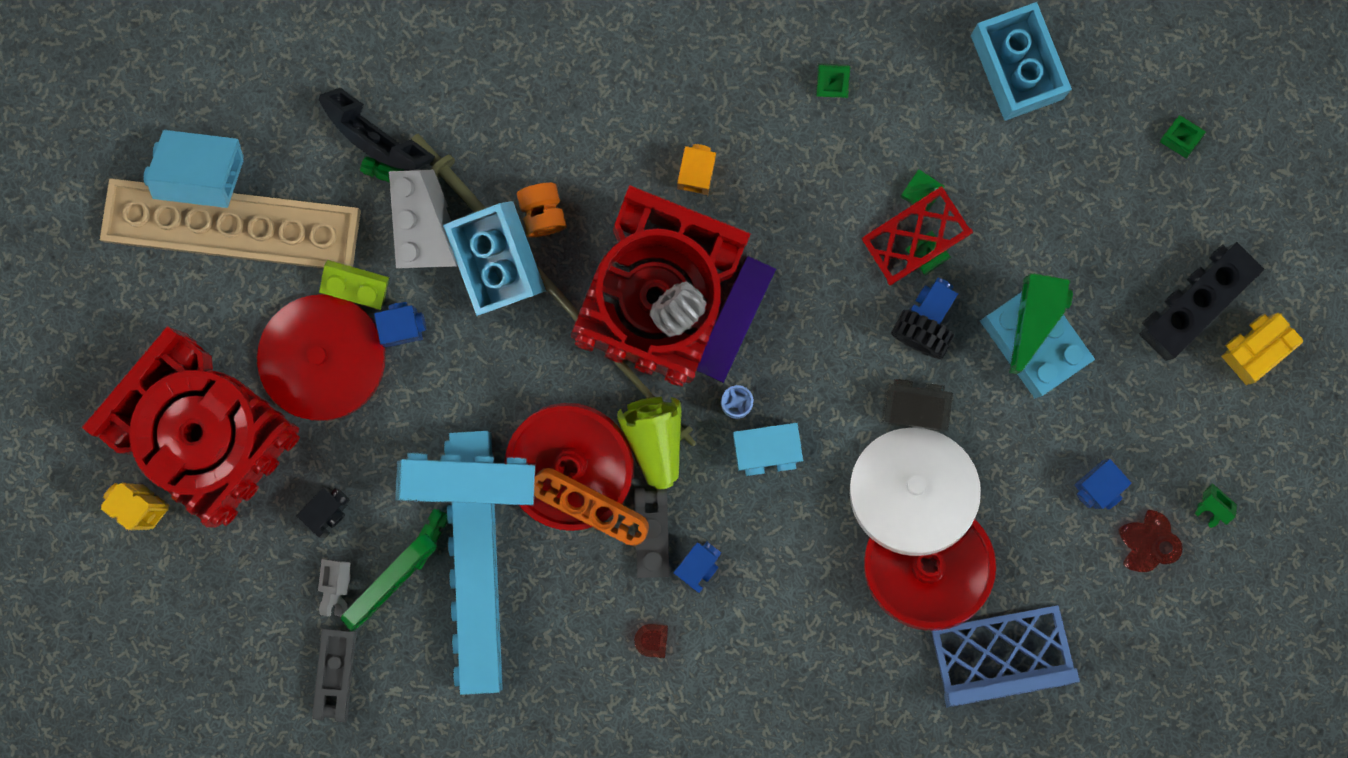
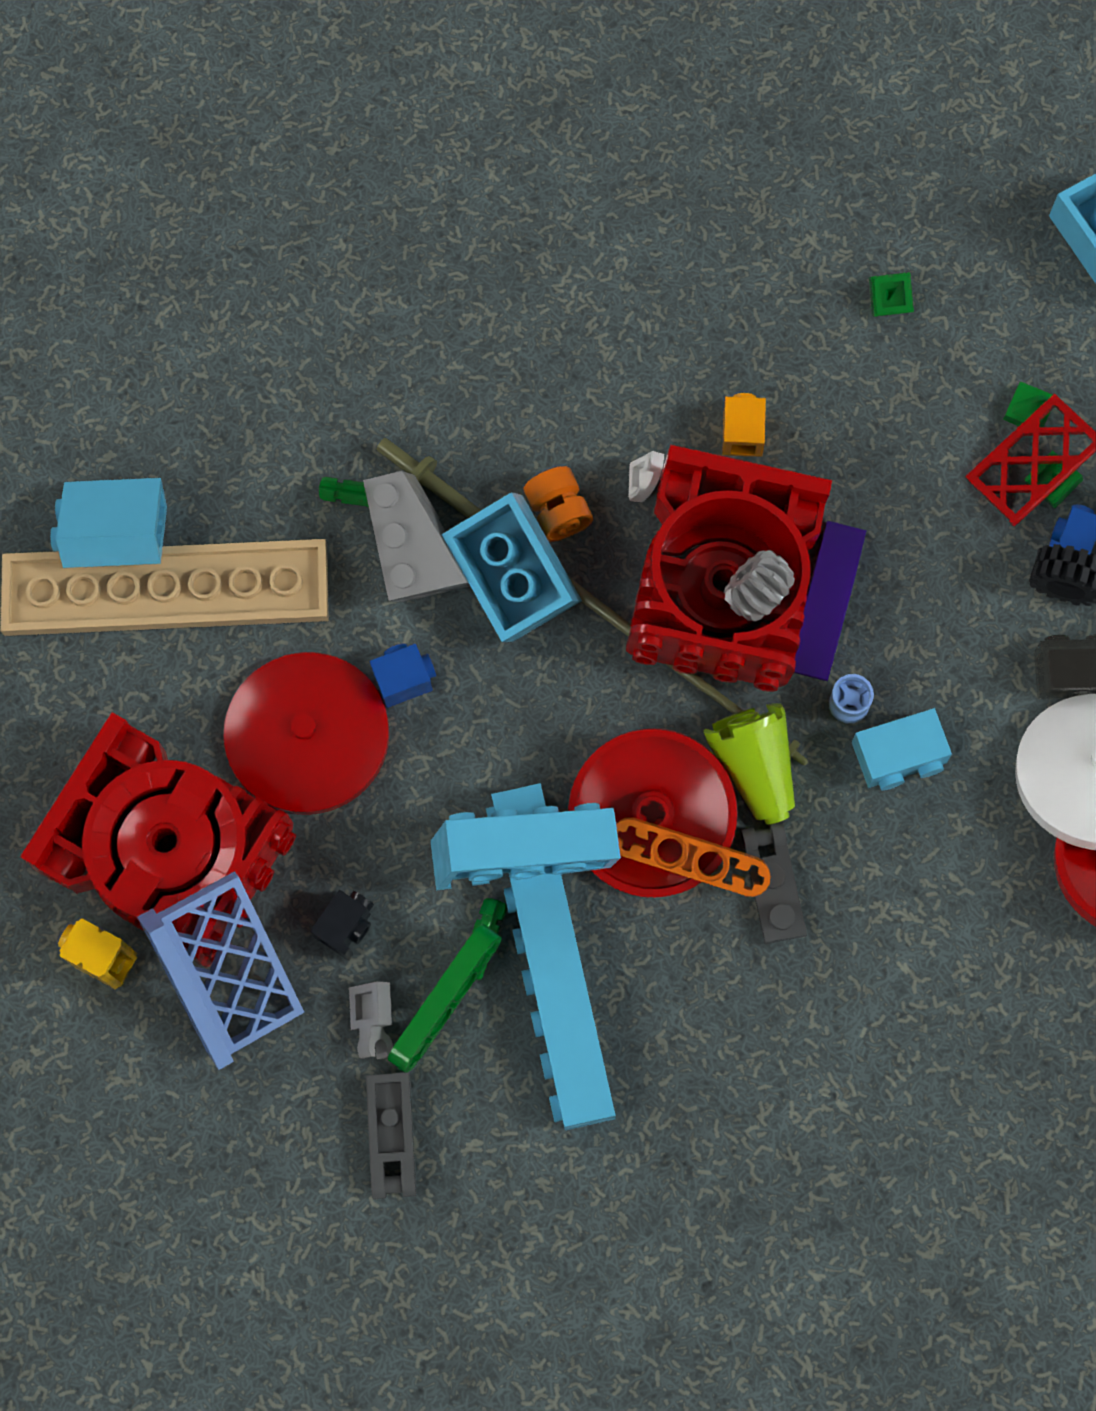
camera: 10 degrees left, 10 degrees down
(194, 542) = (189, 986): none -> medium blue fence
(345, 114) = (290, 429): black slope -> none
(354, 284) = (335, 633): lime plate -> none
(612, 197) = (644, 475): none -> white tile
(652, 640) = (800, 1020): clear red tile -> none
(698, 565) = (842, 912): blue brick -> none

